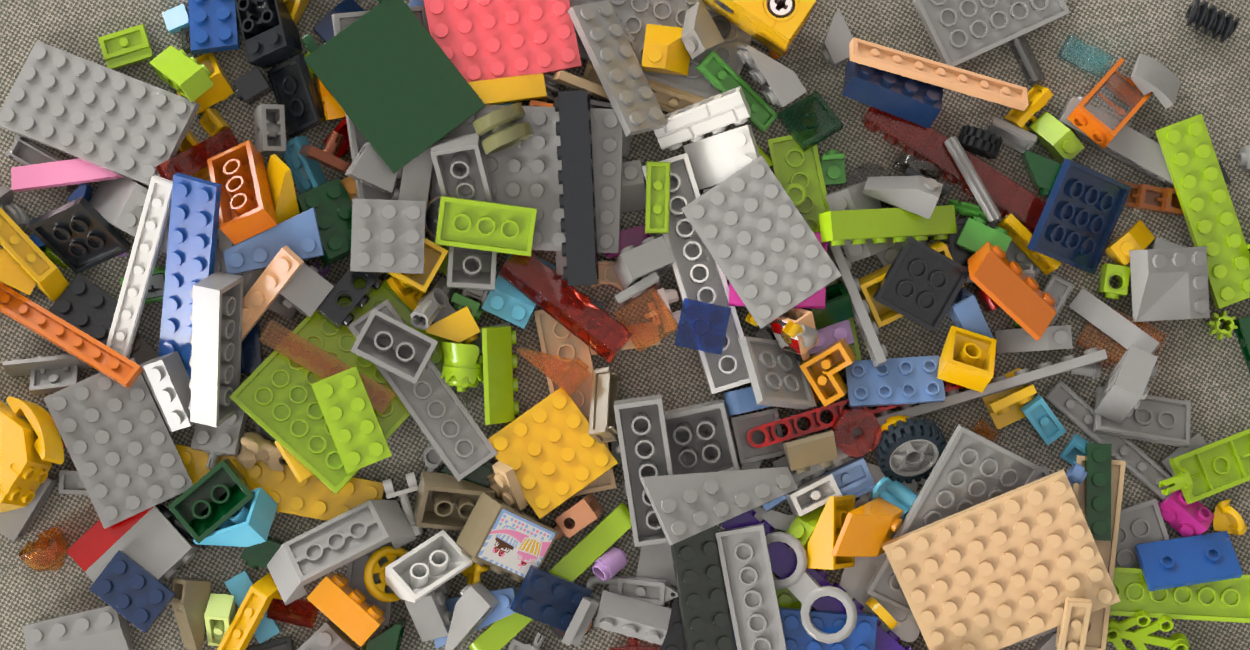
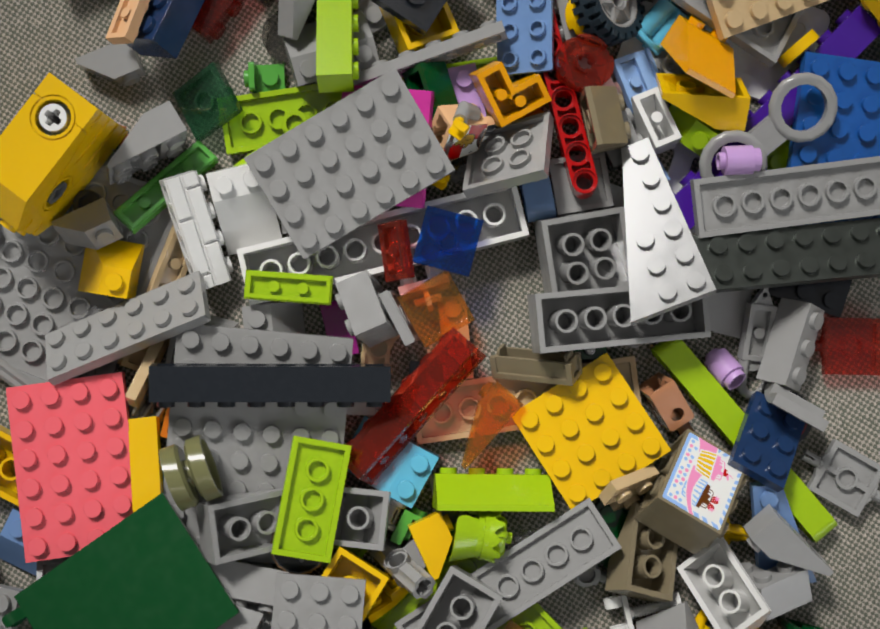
camera: 85 degrees left, 0 degrees up
(692, 284) = (396, 250): none -> clear red plate
(781, 562) = (739, 160): none -> lavender brick

